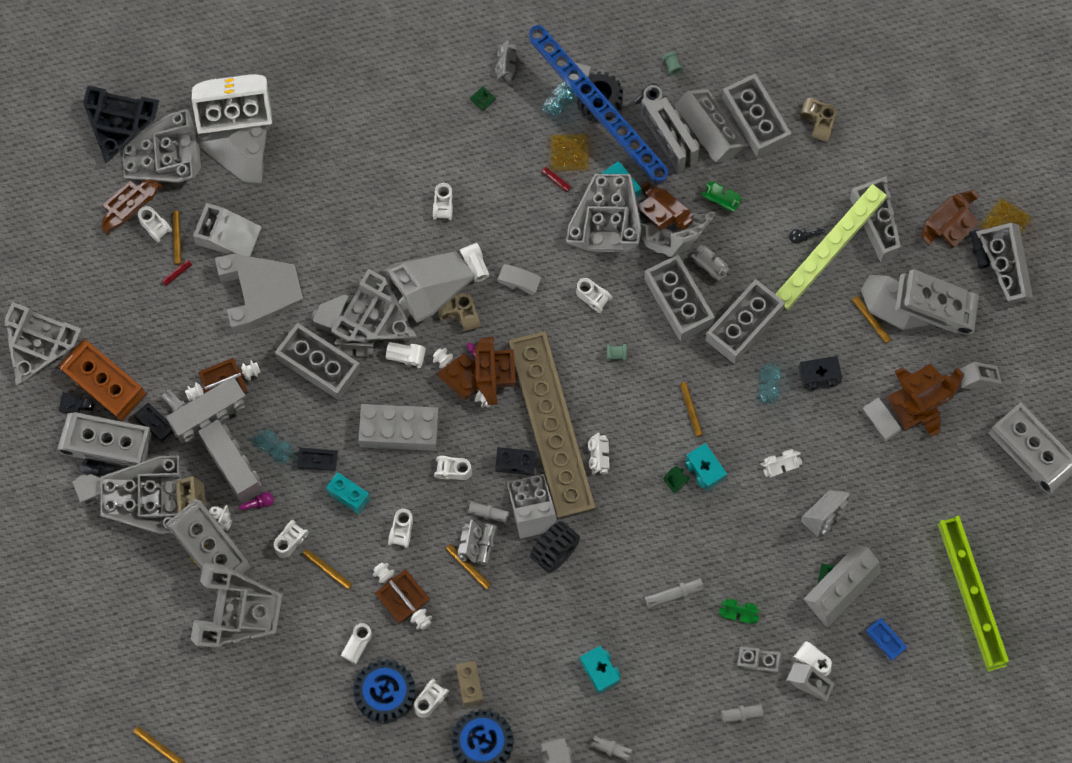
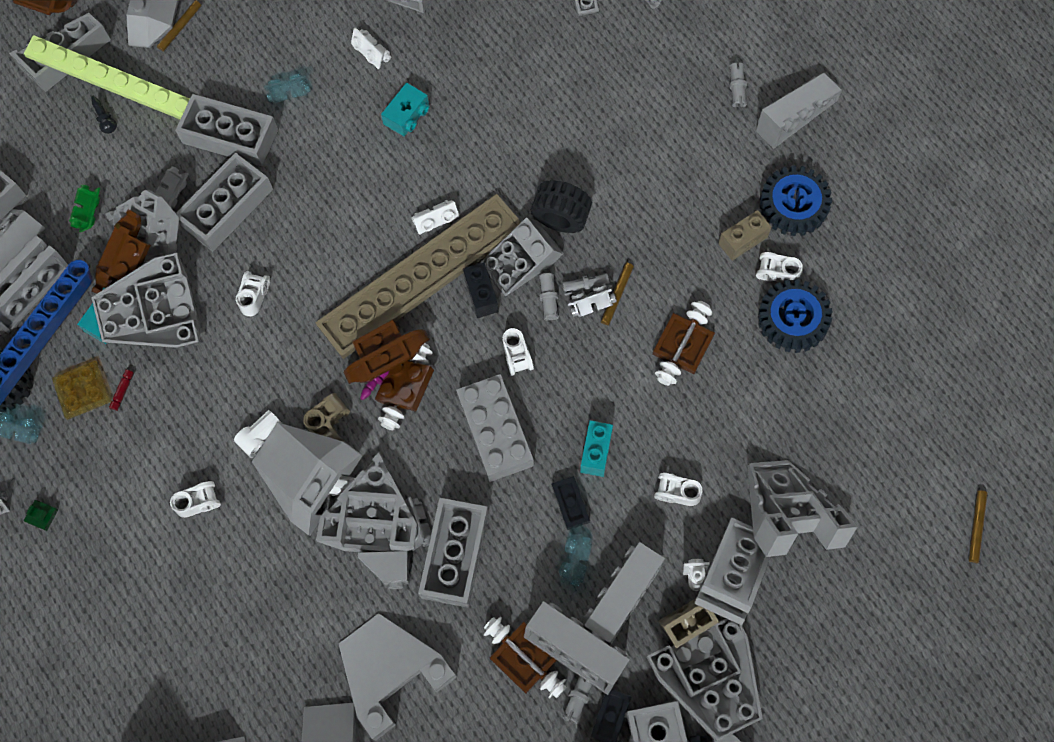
camera: 110 degrees left, 0 degrees up
(264, 499) = (646, 539): magenta bar -> none
(328, 569) = (690, 436): pearl gold bar -> none
(356, 645) = (759, 366): white piece -> none
(401, 532) = (614, 375): white piece -> none
(409, 354) = (402, 457): white piece -> none
(519, 278) = (261, 377): light grey slope -> none
(601, 681) = (665, 123): teal brick -> none
(616, 352) = (310, 242): sand green bush -> none
(675, 479) = (431, 132): dark green tile -> none
(682, 590) = (546, 84): light grey pin -> none
(691, 409) = (352, 146): pearl gold bar -> none
(732, 608) = (541, 20): green hinge -> none
(827, 366) = (257, 45): black brick -> none

